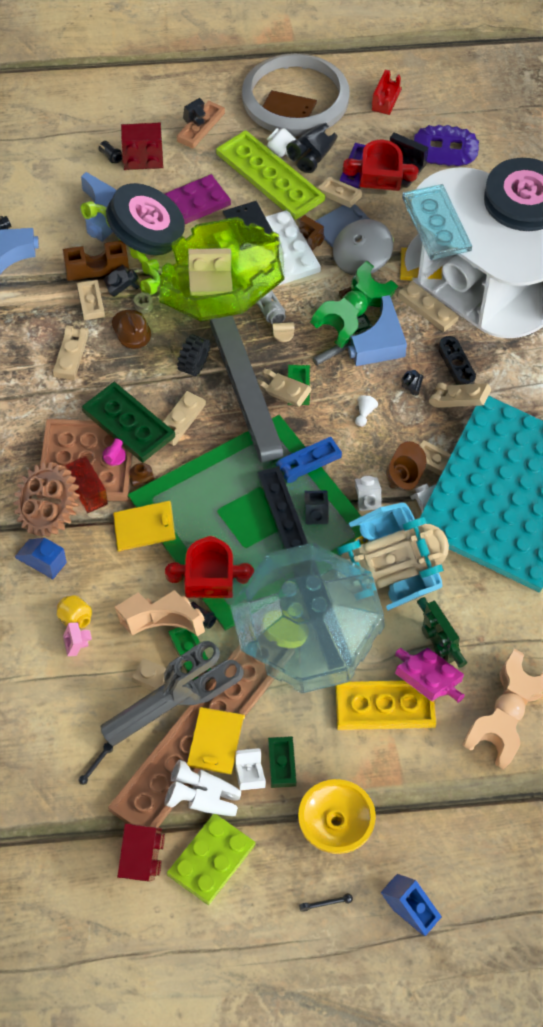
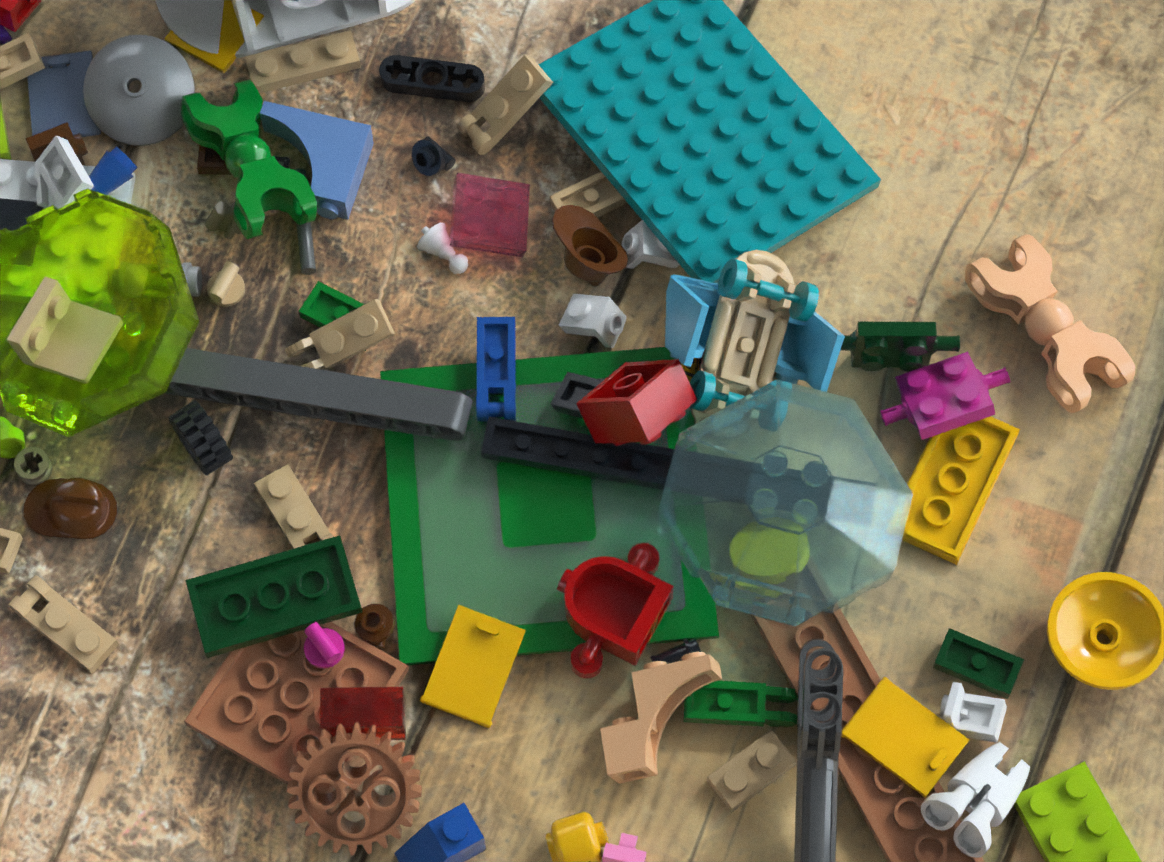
camera: 60 degrees left, 10 degrees up
(294, 234) = (59, 175): none -> white wing
(308, 254) = (112, 171): none -> blue cone
(321, 520) = (637, 402): none -> red brick
(396, 420) = (490, 215): none -> clear pink plate

